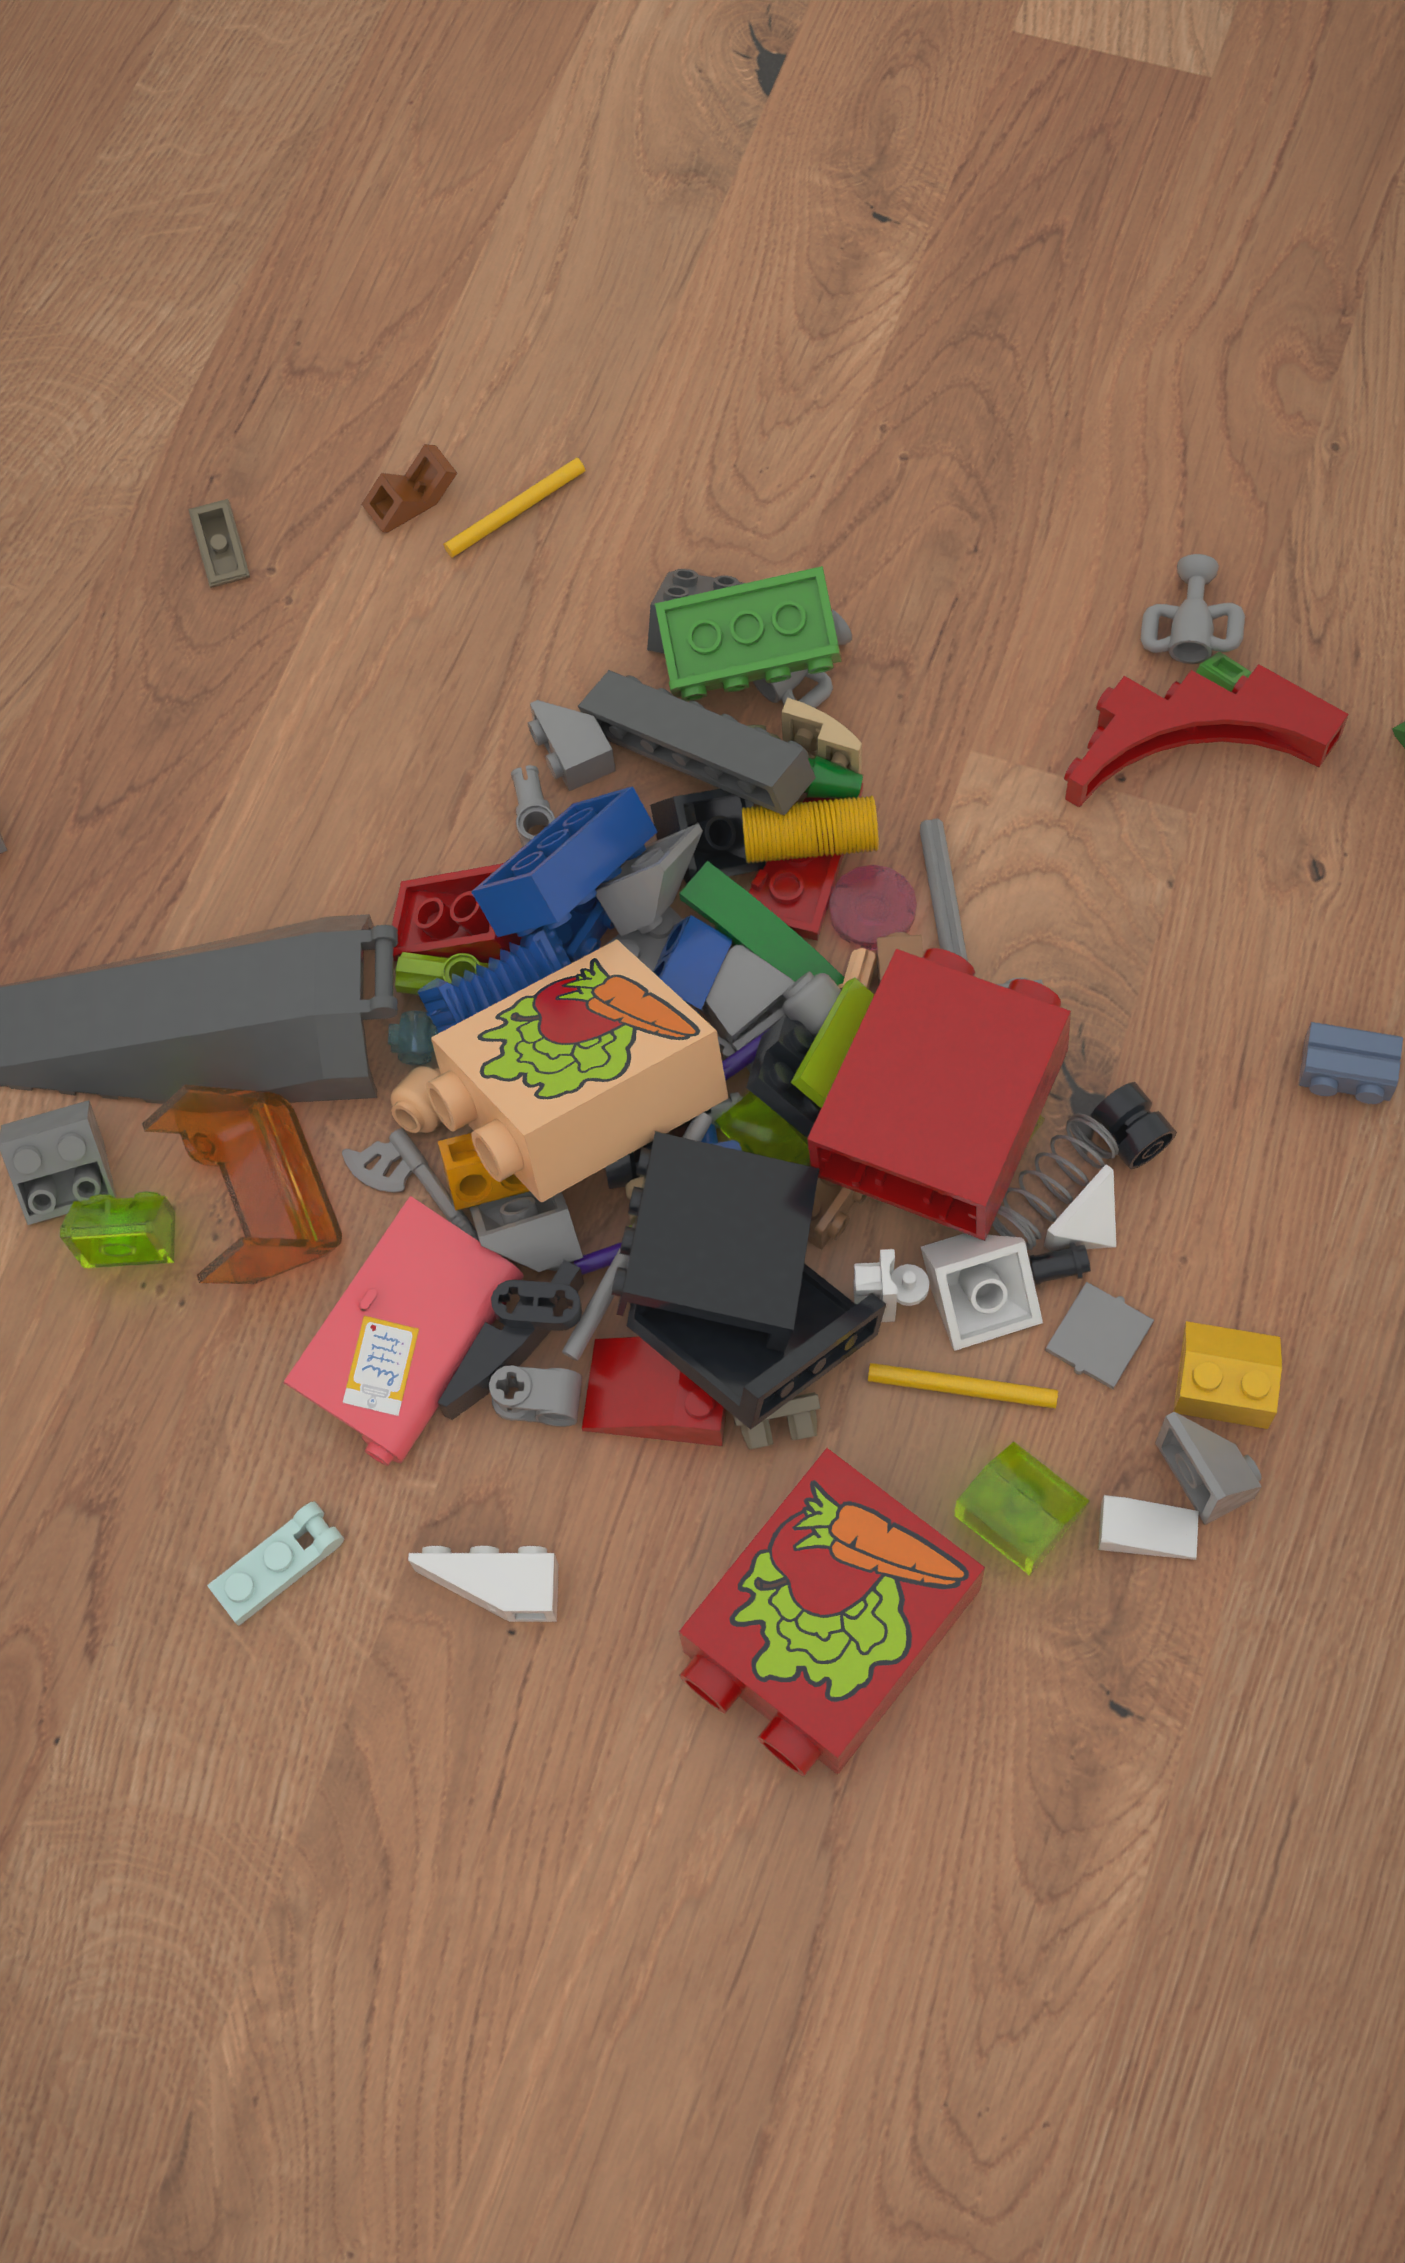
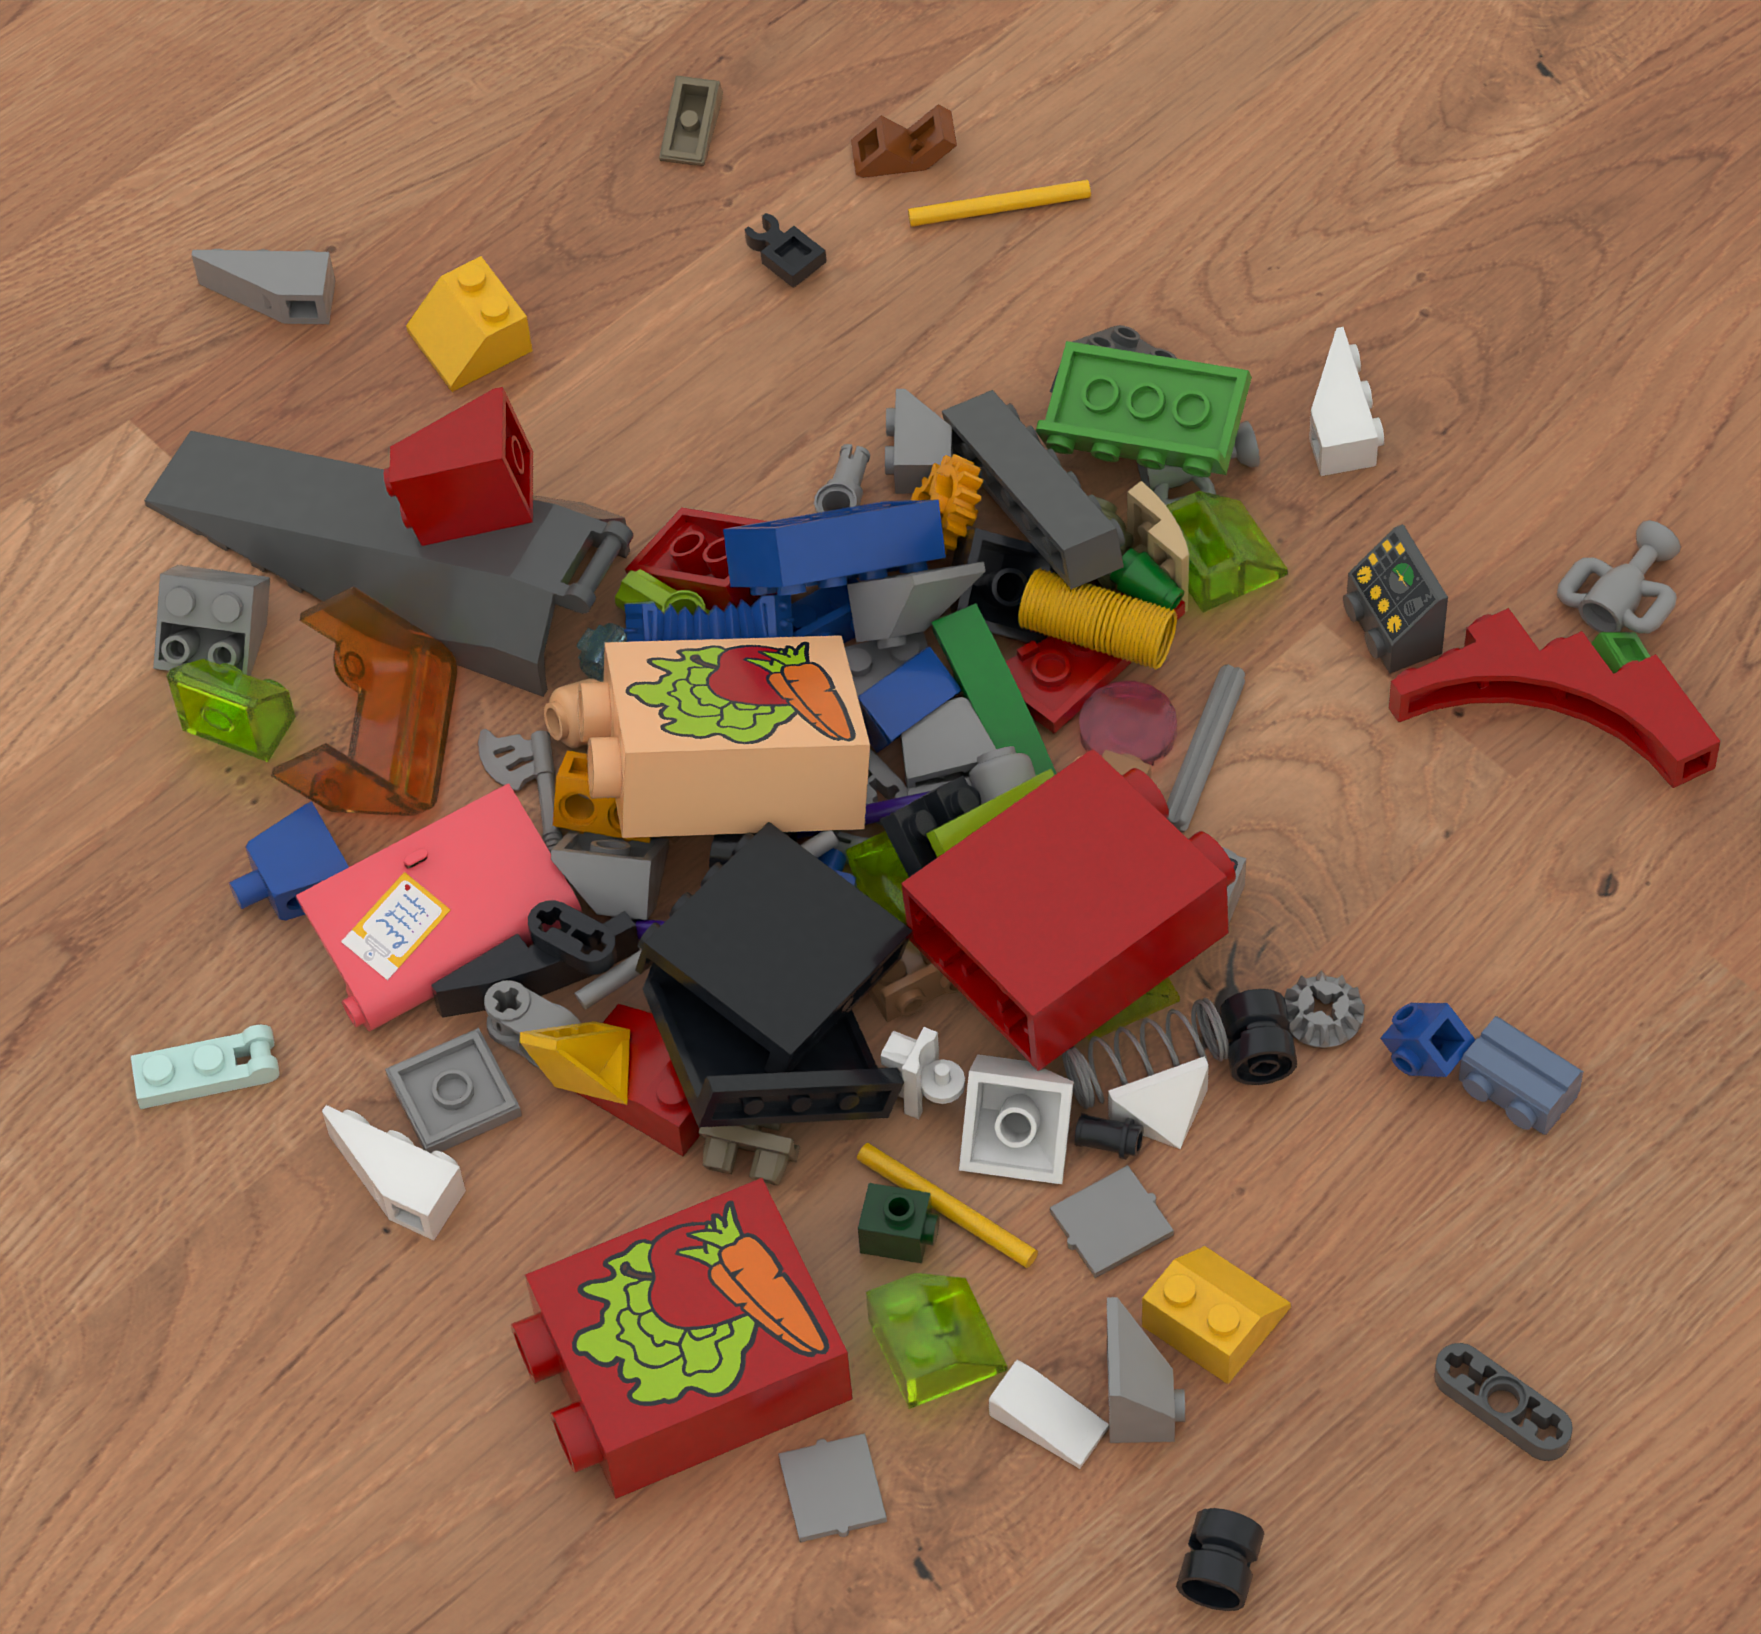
camera: 25 degrees right, 10 degrees down
(134, 800) = (469, 325): none -> yellow slope
(227, 941) = (464, 472): none -> red slope
(254, 1348) = (288, 861): none -> blue torso
(367, 624) = (787, 254): none -> black plate
(500, 1483) = (453, 1092): none -> light grey tile
(604, 1403) = (583, 1058): none -> yellow slope
(627, 766) = (956, 488): none -> light orange gear
(874, 719) = (1224, 549): none -> clear neon green slope
(897, 575) = (1341, 421): none -> white slope
(937, 1423) = (897, 1223): none -> dark green brick
(1009, 1676) = (832, 1487): none -> light grey piece
(1034, 707) = (1397, 602): none -> dark grey slope
(1170, 1094) = (1318, 1028): none -> light grey gear
(1267, 1066) = (1427, 1039): none -> blue brick
(1359, 1585) = (1220, 1559): none -> black wheel

